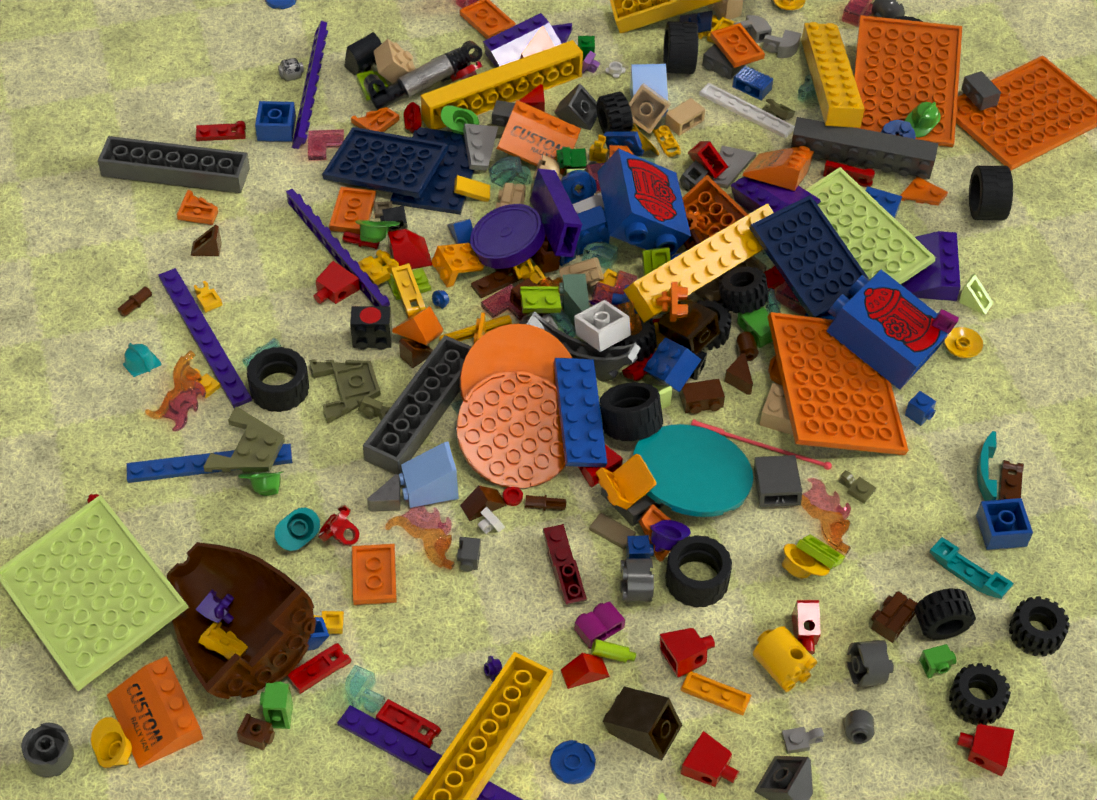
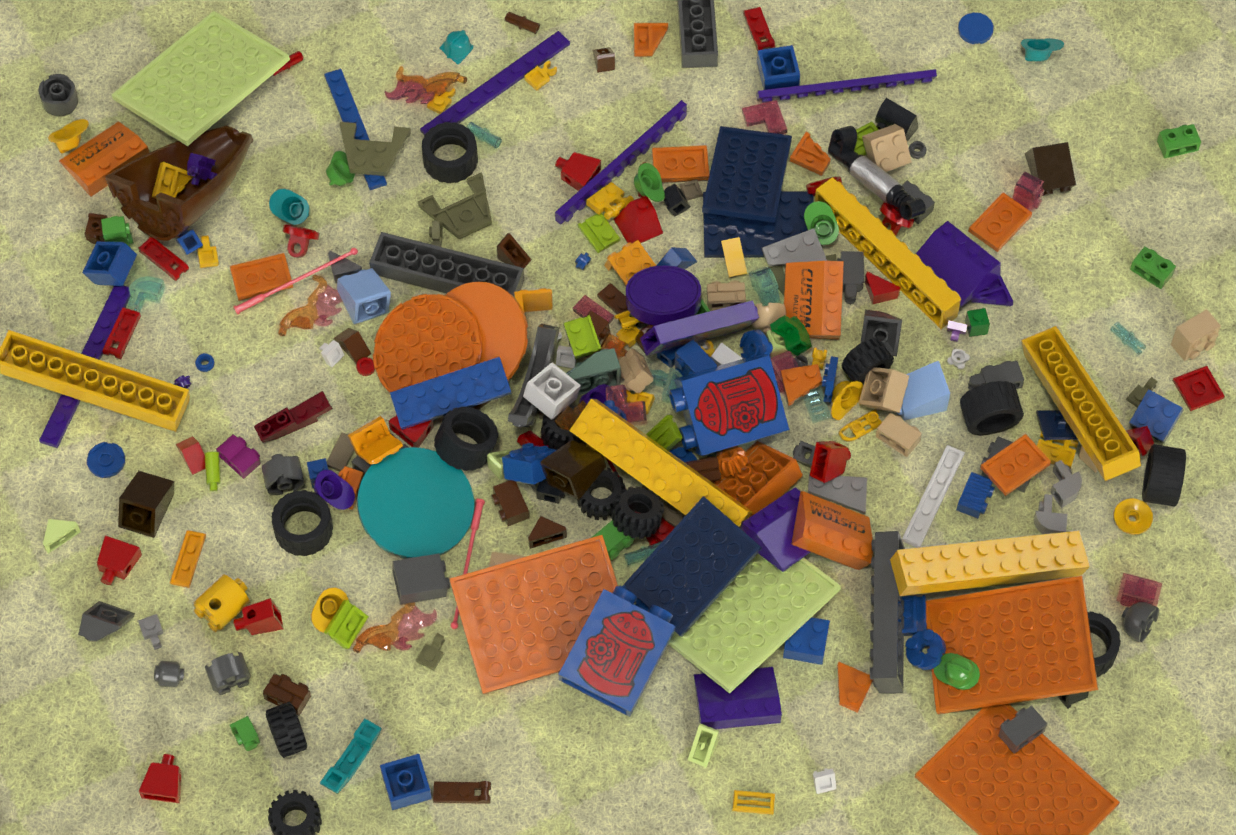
camera: 80 degrees right, 10 degrees up
(290, 69) = (863, 63): light grey head -> none
(316, 717) = (109, 263): none -> blue brick
(371, 327) = (523, 209): black brick -> none
(402, 576) = (259, 298): none -> coral piece
(408, 289) = (582, 230): yellow plate -> none
(420, 327) = (538, 250): orange slope -> none
(468, 332) = (557, 304): yellow axle -> none
(469, 553) = (292, 343): dark grey brick -> none
(469, 638) = (204, 357): none -> blue plate
(539, 43) = (953, 273): wing -> none
(544, 503) = (361, 392): reddish brown axle -> none
(643, 46) = (1005, 371): none -> dark grey hinge
(675, 293) = (579, 438): orange hips -> none
(685, 650) = (220, 525): red torso -> none
(747, 344) = (582, 532): reddish brown brick -> none
(780, 110) = (937, 528): olive plate -> none
(861, 176) = (856, 607): red plate -> none
(920, 408) = (536, 699): blue brick -> none
(945, 321) = (623, 695): magenta tile -> none
(964, 336) = (636, 727): yellow dish -> none
(976, 708) = (218, 783): black tyre -> none
(987, 486) = (448, 768): teal slope -> none
(990, 192) = (846, 743): black tyre -> none
(1013, 224) = (824, 781): none -> white tile
(1027, 286) = (771, 796): none -> yellow tile

